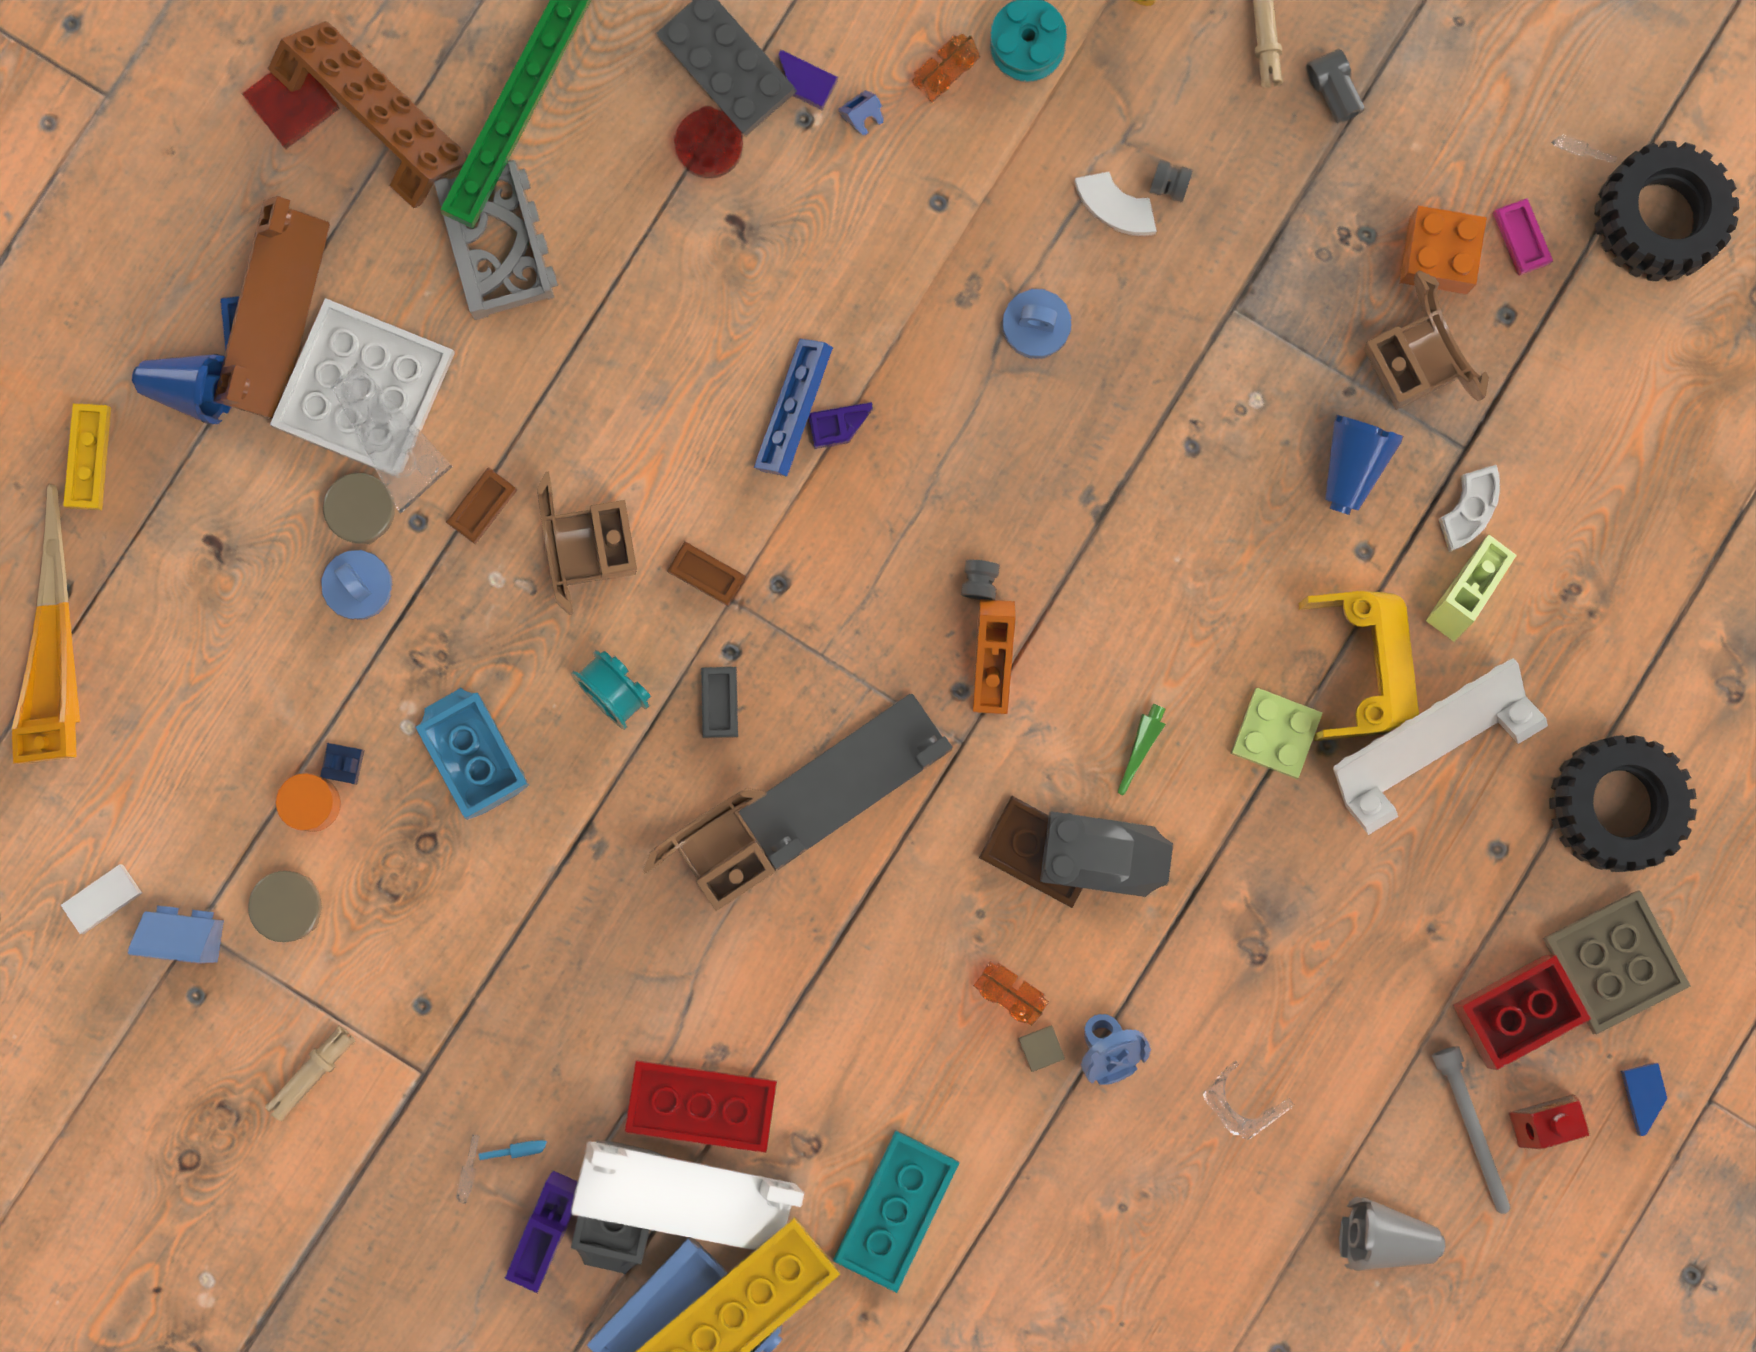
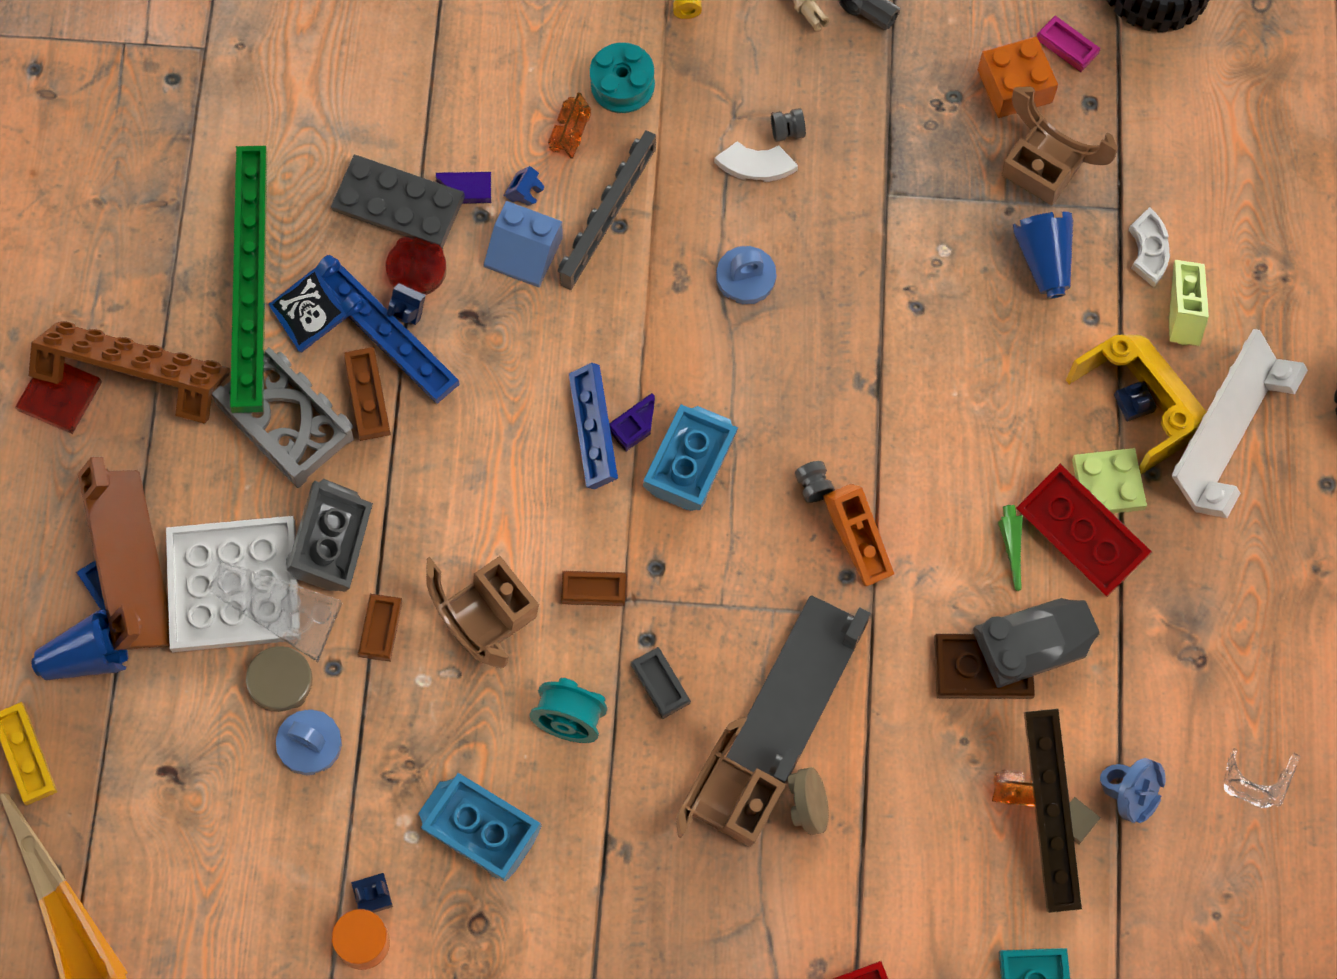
camera: 30 degrees left, 15 degrees down
(477, 388) = (329, 537): none -> dark grey slope
(579, 135) = (311, 307): none -> flag
(589, 257) = (367, 393): none -> dark orange plate
(641, 199) = (395, 339): none -> blue plate
(675, 181) = (406, 304): none -> dark blue tile
(792, 897) = (810, 801): none -> dark tan tile
(827, 175) = (523, 244): none -> medium blue slope
(872, 489) = (690, 457): none -> dark azure slope
(944, 173) = (602, 218): none -> dark grey plate
(1017, 1030) = (1052, 810): none -> dark brown plate
(1217, 770) = (1083, 530): none -> red plate
(1354, 663) = (1135, 401): none -> dark blue tile

